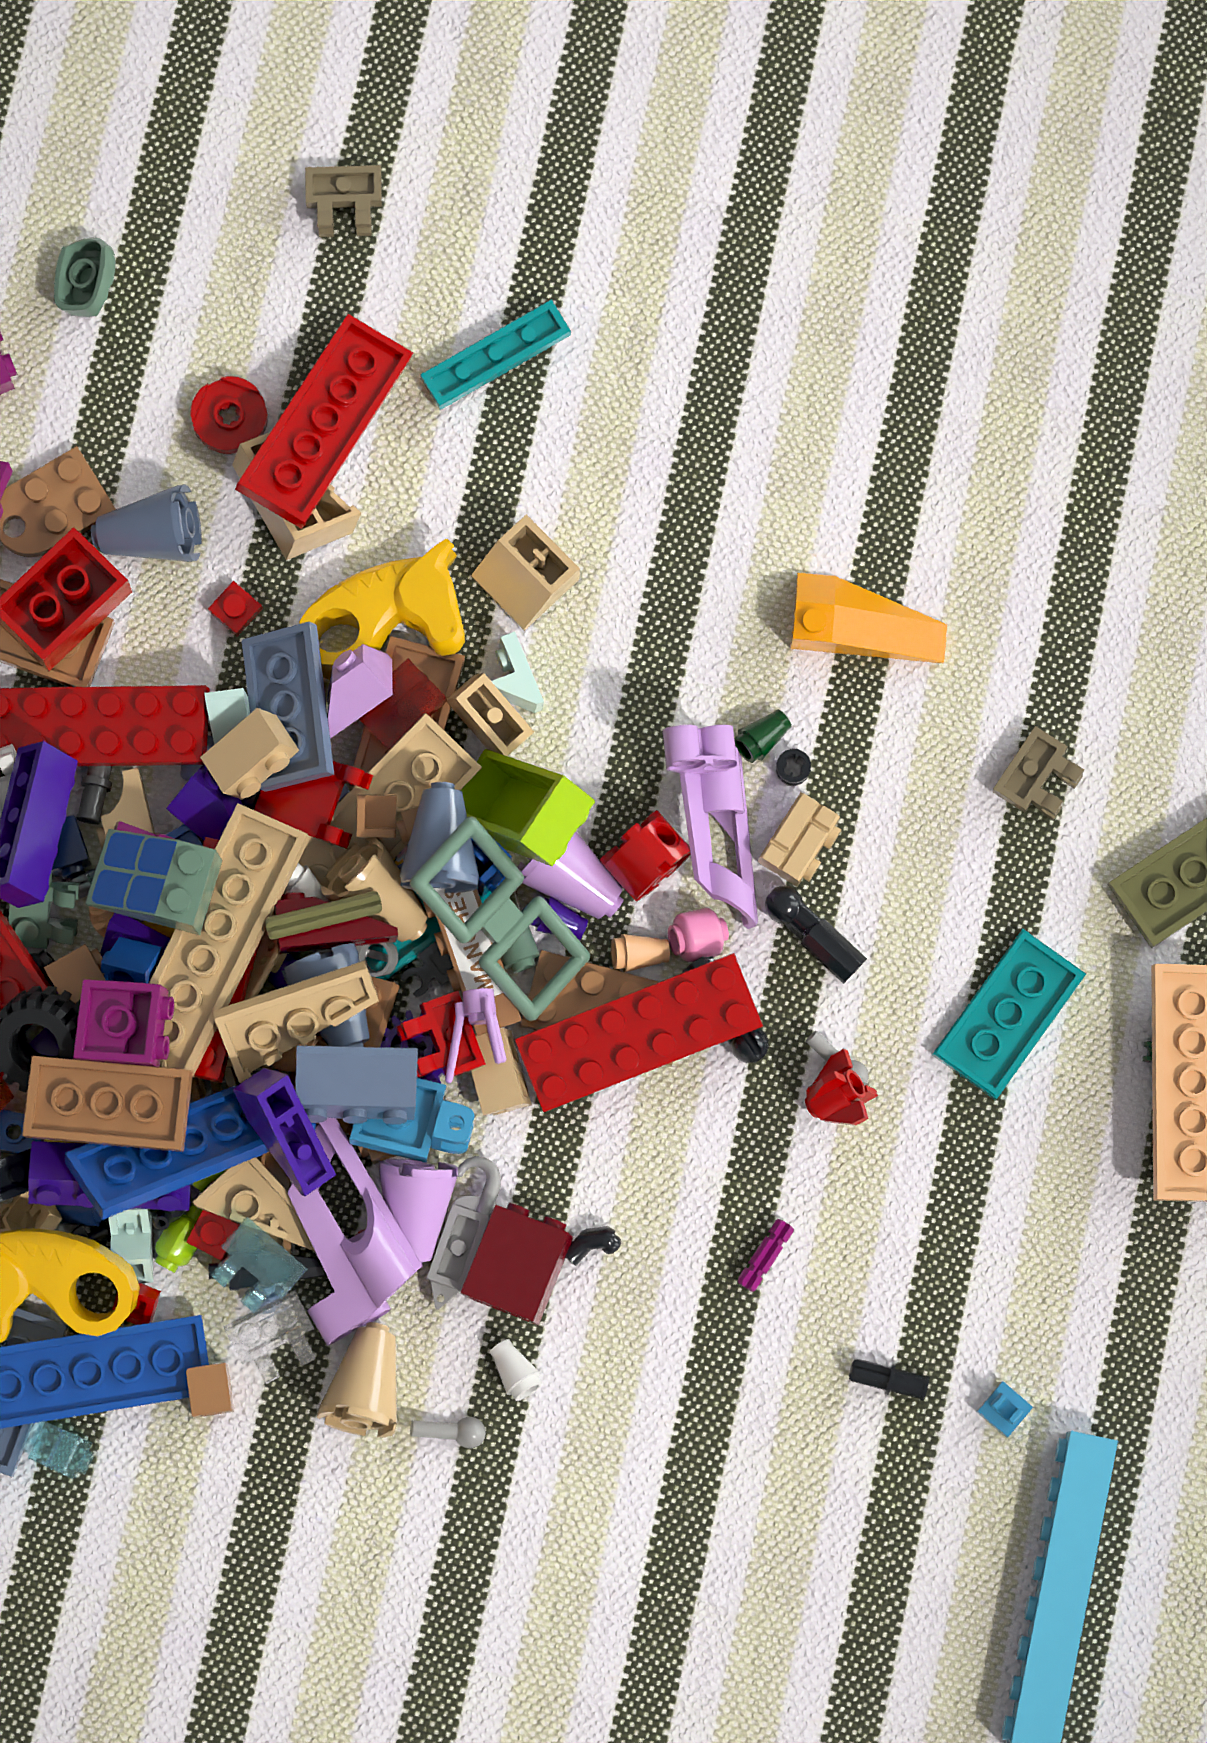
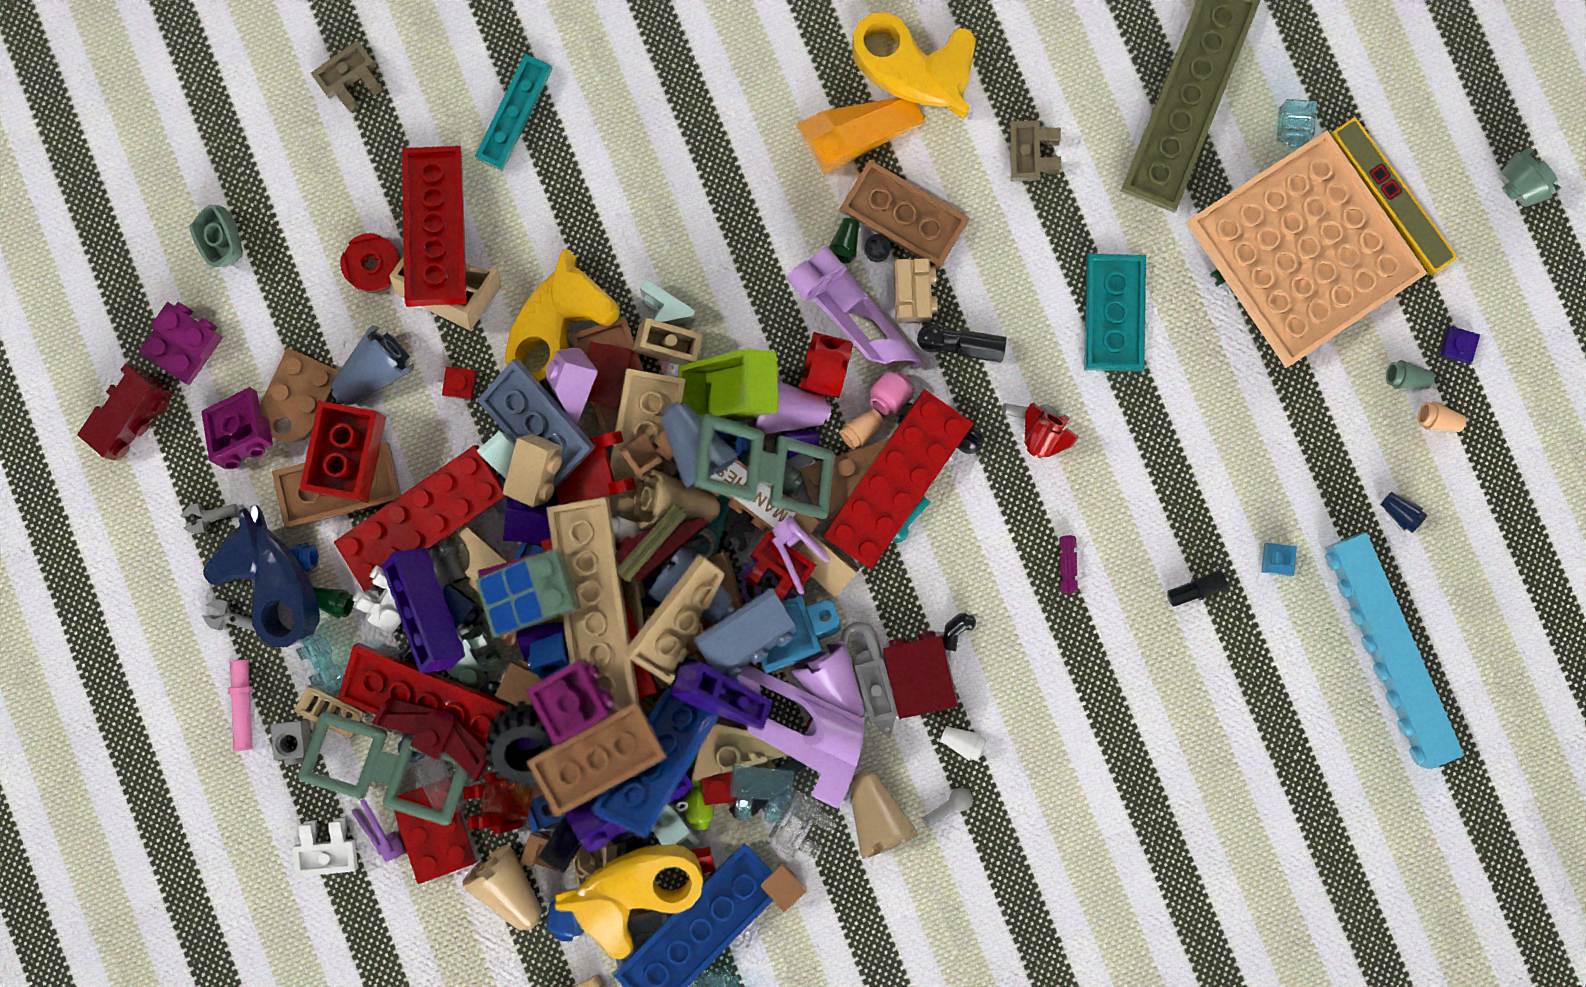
camera: 30 degrees left, 5 degrees up
(526, 572) = (627, 237): tan slope -> none
(608, 1095) = (904, 530): none -> teal bar
(848, 749) = (904, 214): none -> medium nougat plate
(958, 601) = (908, 72): none -> yellow animal
(1179, 1450) = (1404, 512): none -> dark blue cone

